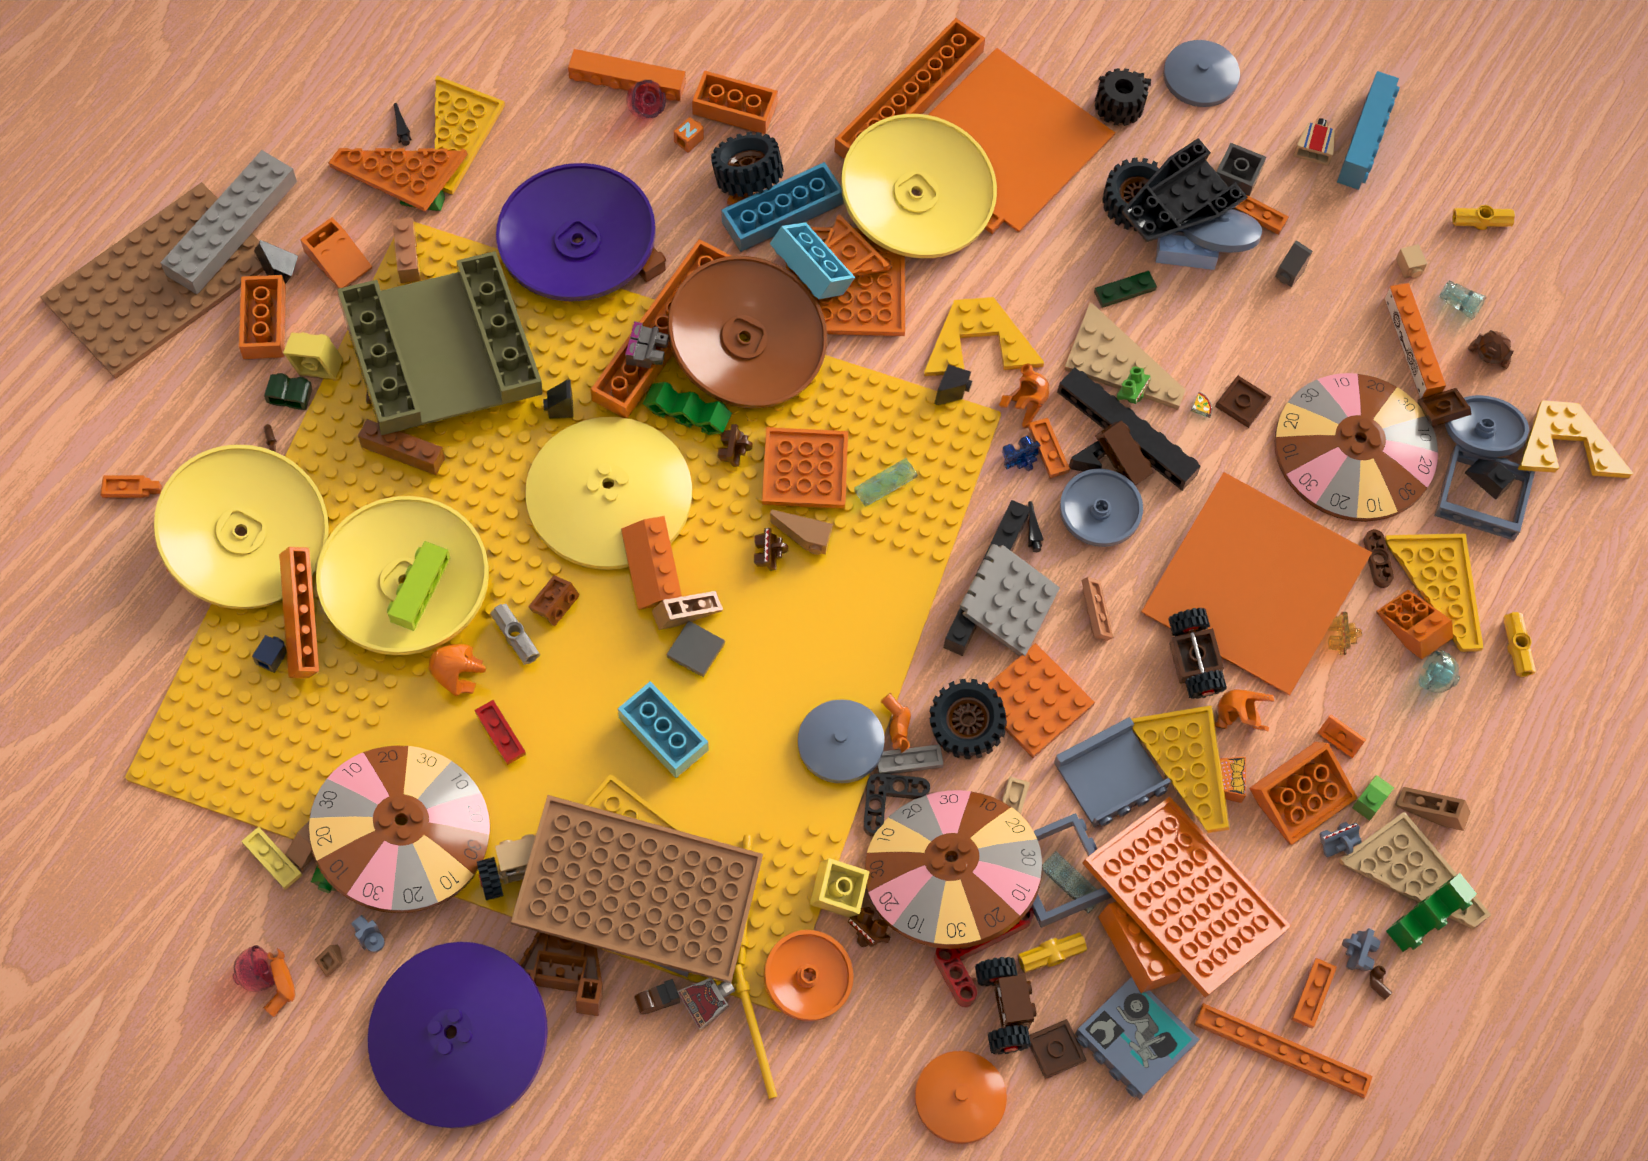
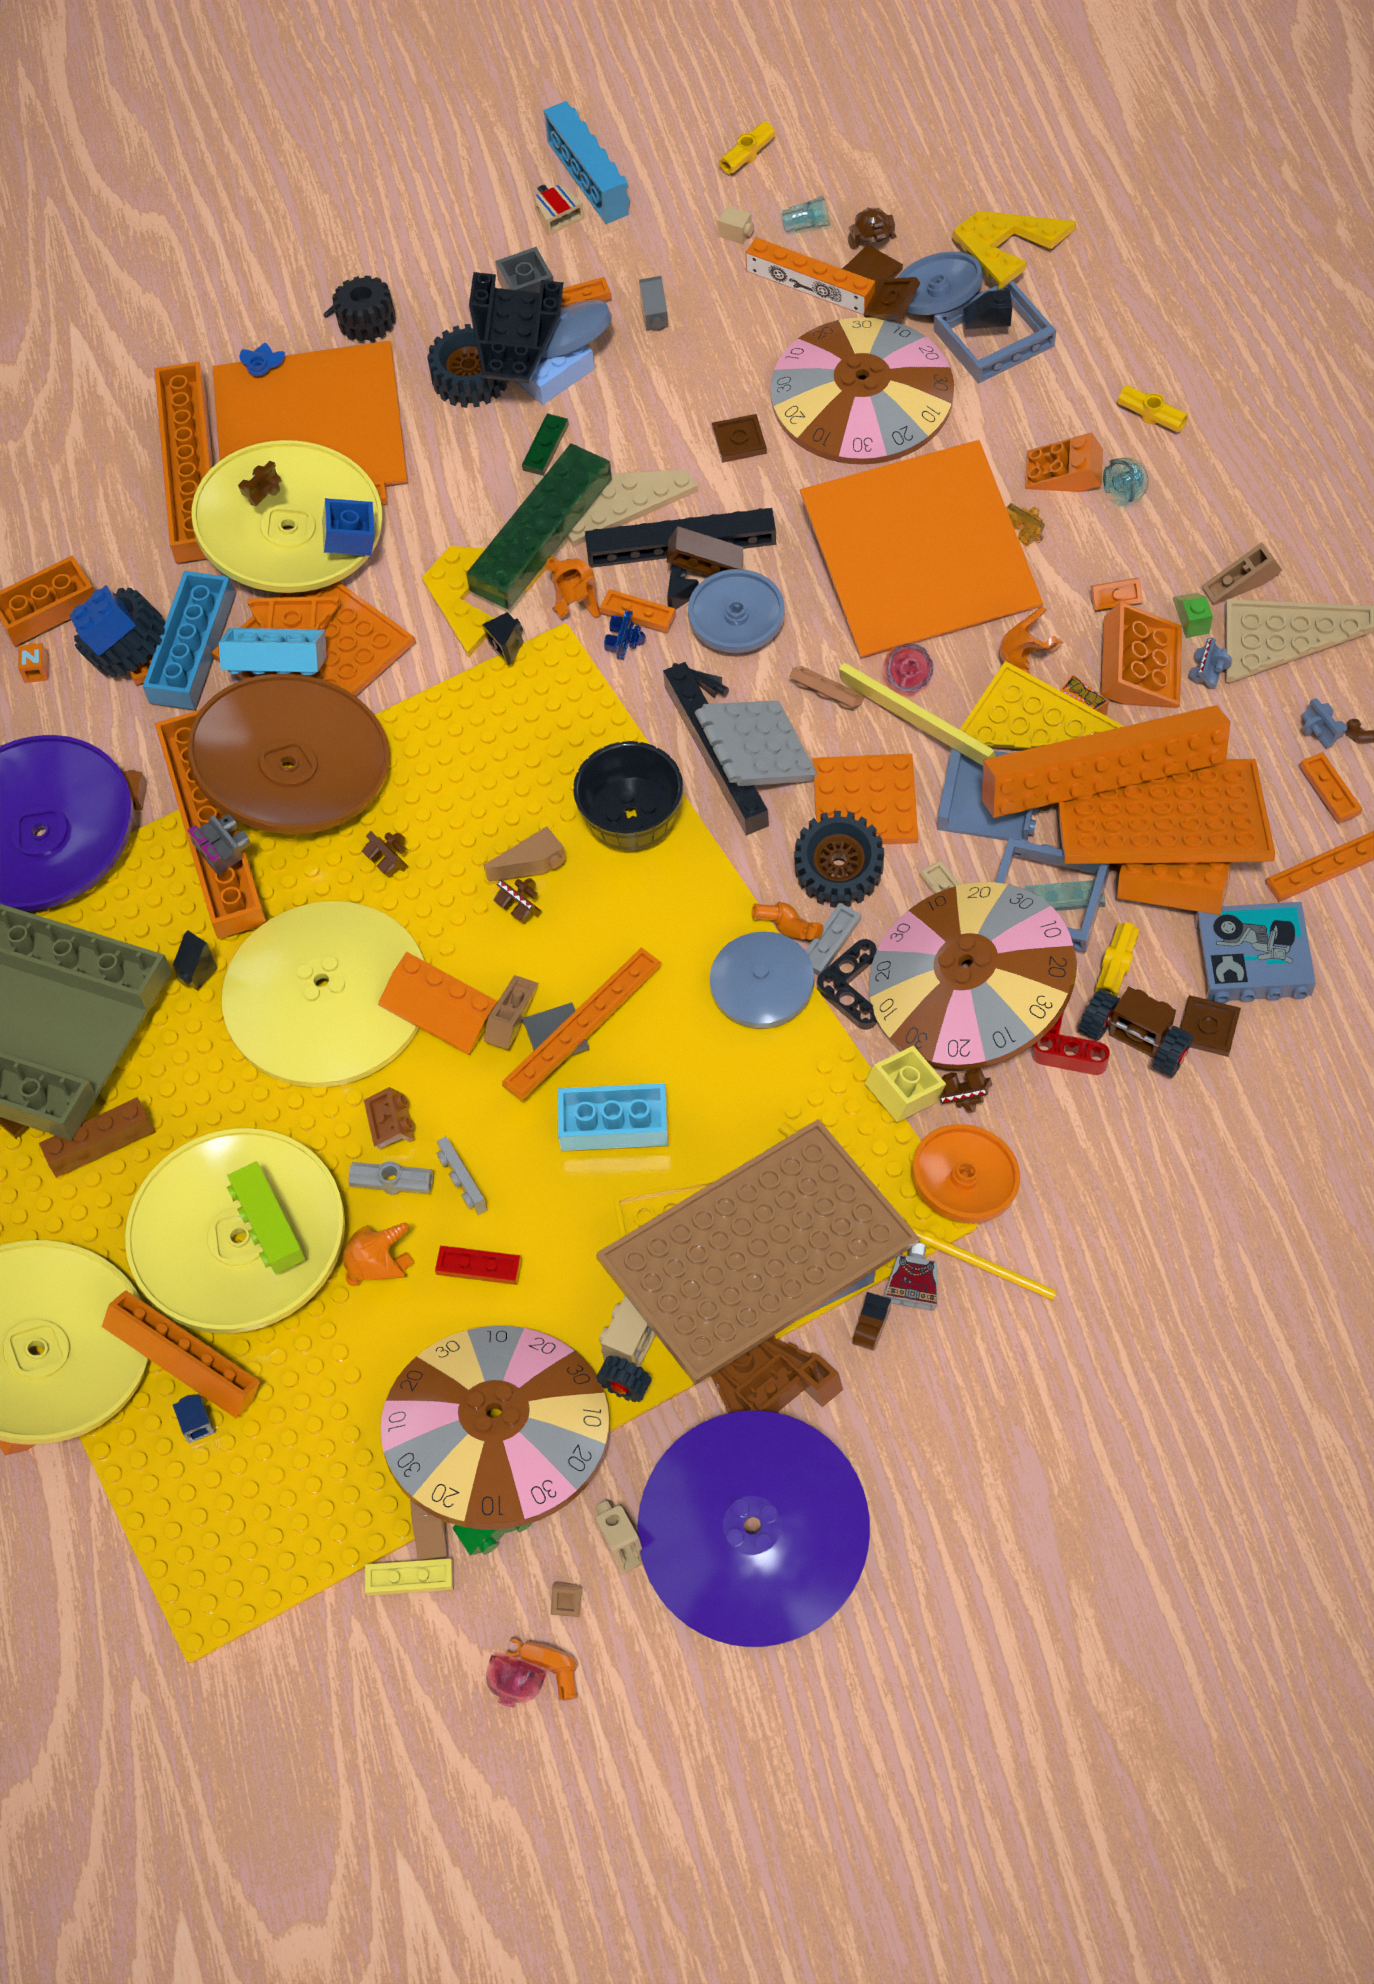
camera: 40 degrees left, 5 degrees down
(368, 934) = (573, 1538): sand blue hips -> none
(389, 956) = (619, 1536): none -> tan torso
(549, 673) = (460, 1176): none -> light grey plate
(687, 408) = (311, 862): green brick -> none
(714, 658) = (581, 1024): none -> orange tile
(737, 148) = (102, 620): none -> blue brick
(805, 467) = (466, 811): orange plate -> none
(885, 482) = (544, 759): clear light blue plate -> none
(896, 537) = (623, 779): none -> black piece
(922, 152) = (264, 482): none -> reddish brown hips
(938, 227) = (348, 527): none -> blue brick
(960, 1097) = (1188, 1137): orange dish -> none
(1027, 71) = (261, 360): none -> blue plate
(1052, 337) = (539, 526): none -> clear green brick
(1120, 684) = (915, 714): none -> light yellow tile
(1134, 386) = (648, 499): bright green hips -> none
(1153, 648) = (908, 667): none -> clear pink cylinder
(1189, 830) = (1105, 761): none -> orange brick
(1196, 653) = (947, 638): brick -> none
(1201, 73) = (401, 240): sand blue dish -> none
(1202, 405) = (713, 469): tile -> none
(1375, 567) = (997, 450): reddish brown beam -> none
(1431, 913) = (1338, 643): green brick -> none
(1444, 578) = (1041, 416): yellow wing -> none
(1462, 373) = (874, 265): none -> reddish brown tile

